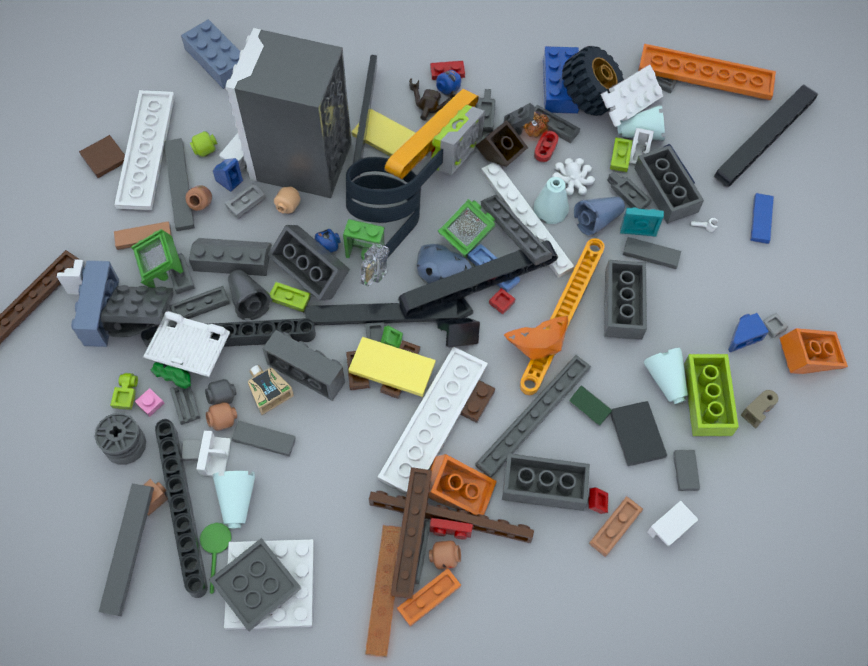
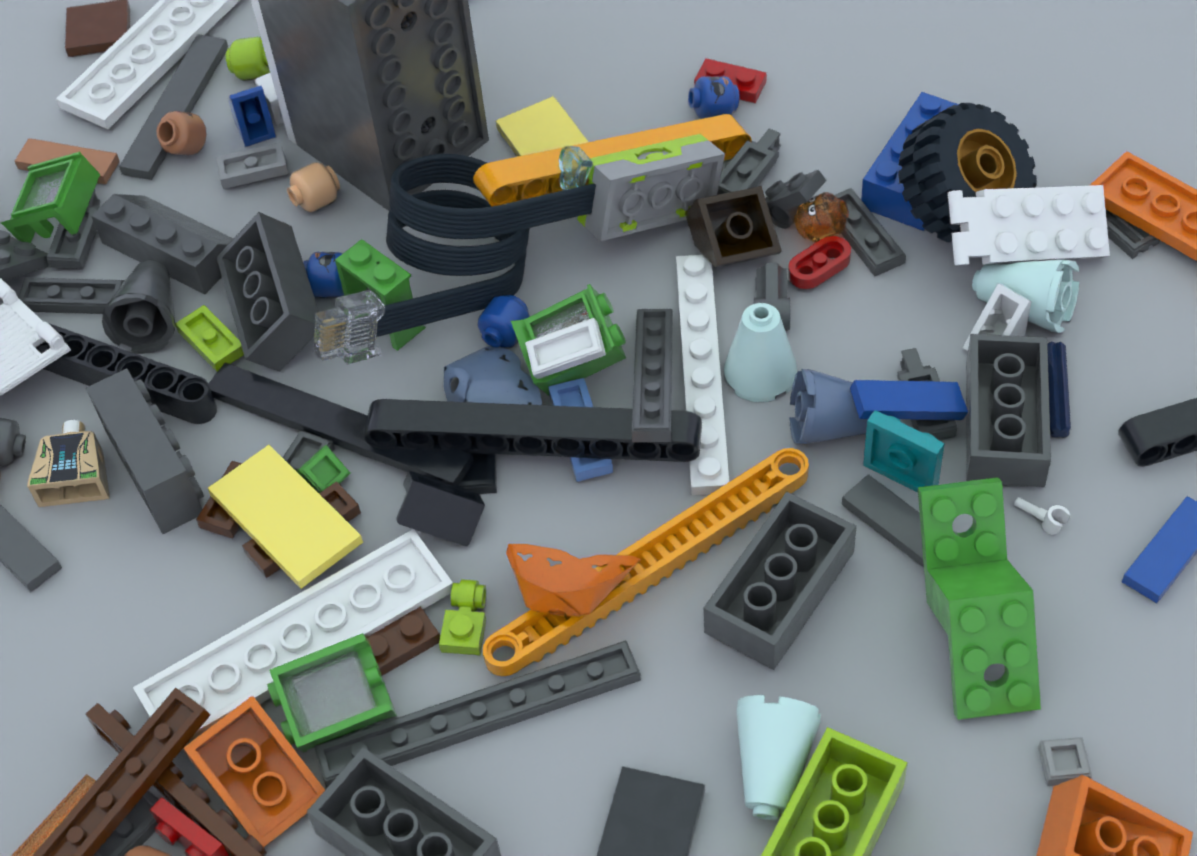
camera: 35 degrees right, 10 degrees down
(365, 111) = (538, 89): black tile -> none
(425, 231) = (496, 320): none -> blue head
(429, 100) = (663, 112): dark brown piece -> none
(429, 144) = (574, 167): none -> clear light blue tile
(471, 437) = (330, 693): none -> window
(472, 233) = (565, 348): none -> white tile
(501, 380) = (464, 629): none -> lime plate
(502, 301) = (556, 490): red plate -> none
(538, 174) = (772, 290): none -> dark grey piece
(573, 176) = (838, 330): white animal -> none
(590, 405) = (590, 742): dark green tile -> none
(621, 154) = (951, 327): lime plate -> none
(630, 196) = (909, 399): none -> blue tile
(711, 272) = (979, 599): none -> bright green bracket
(747, 332) = (990, 747): blue slope -> none

